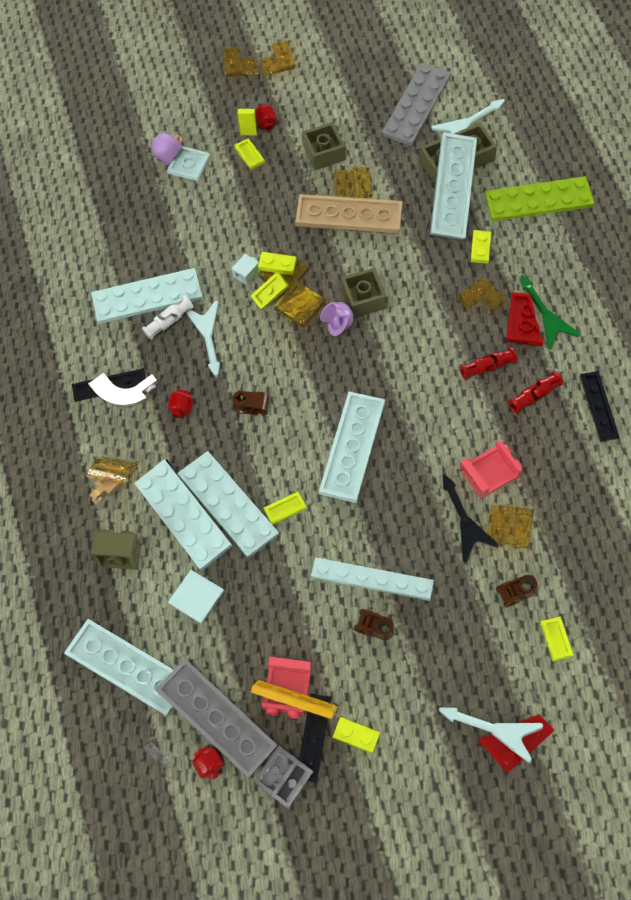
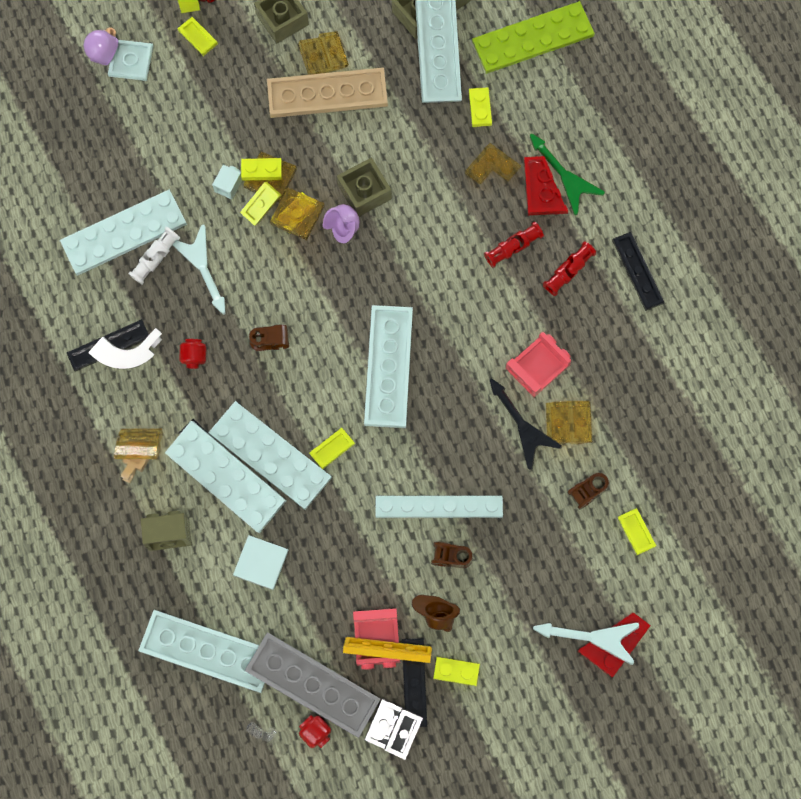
camera: 15 degrees left, 10 degrees up
(348, 674) = (437, 611): none -> reddish brown piece

